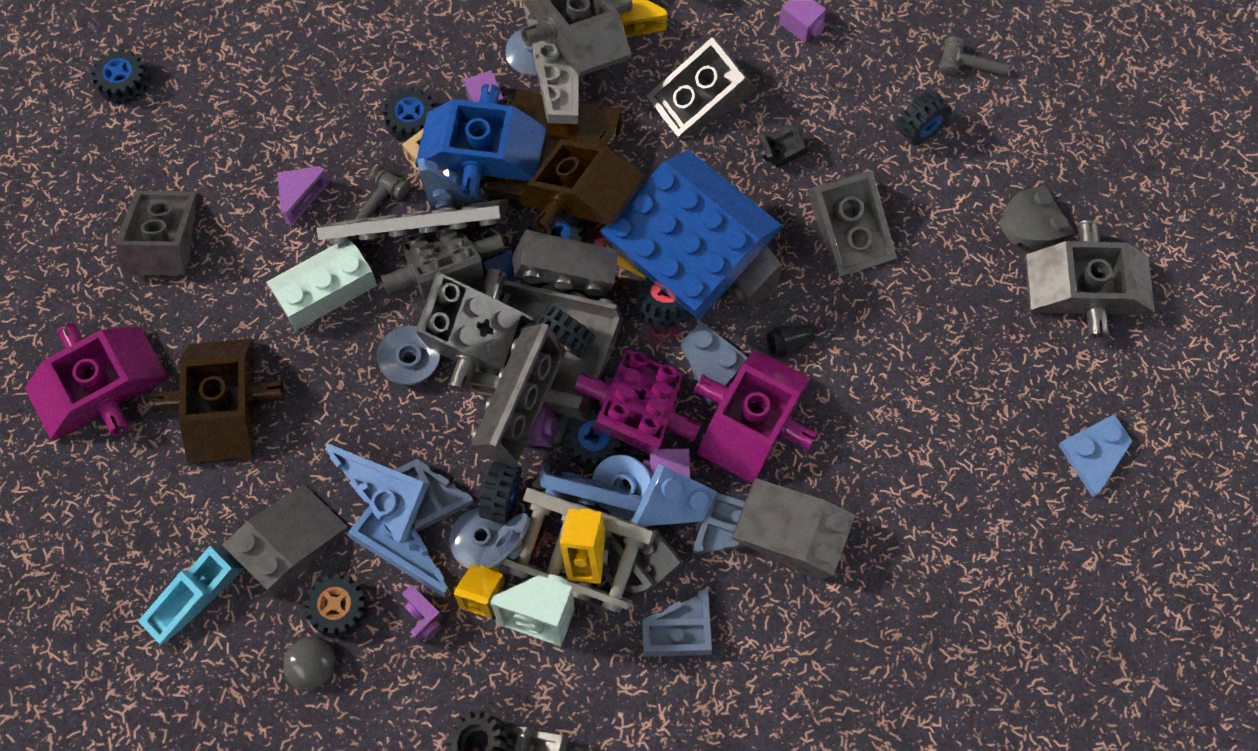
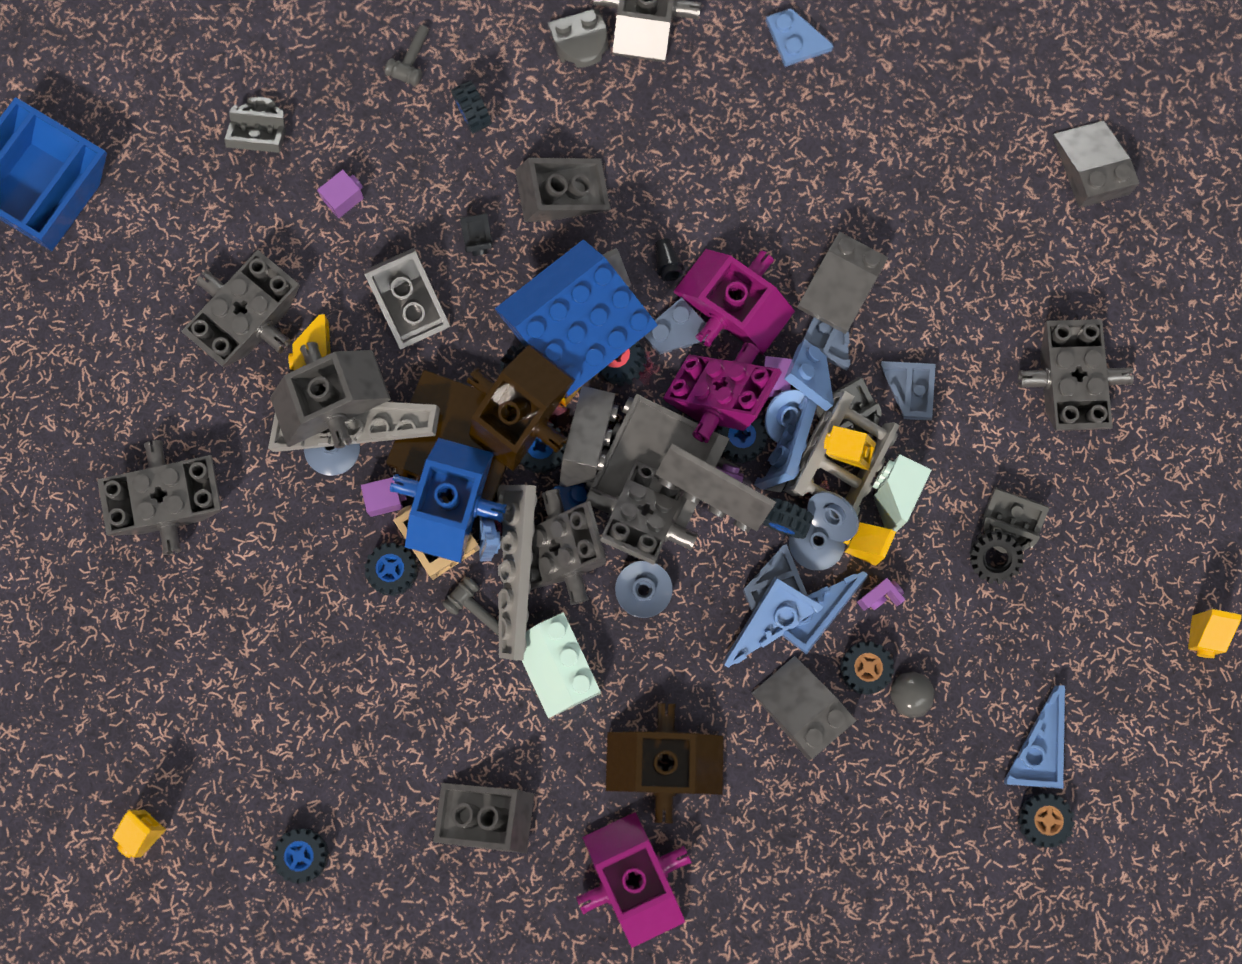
camera: 85 degrees left, 10 degrees up
(190, 593) = (844, 793): medium azure slope -> none
(299, 190) = (459, 682): medium lavender slope -> none
(570, 333) = (654, 441): black wheel -> none

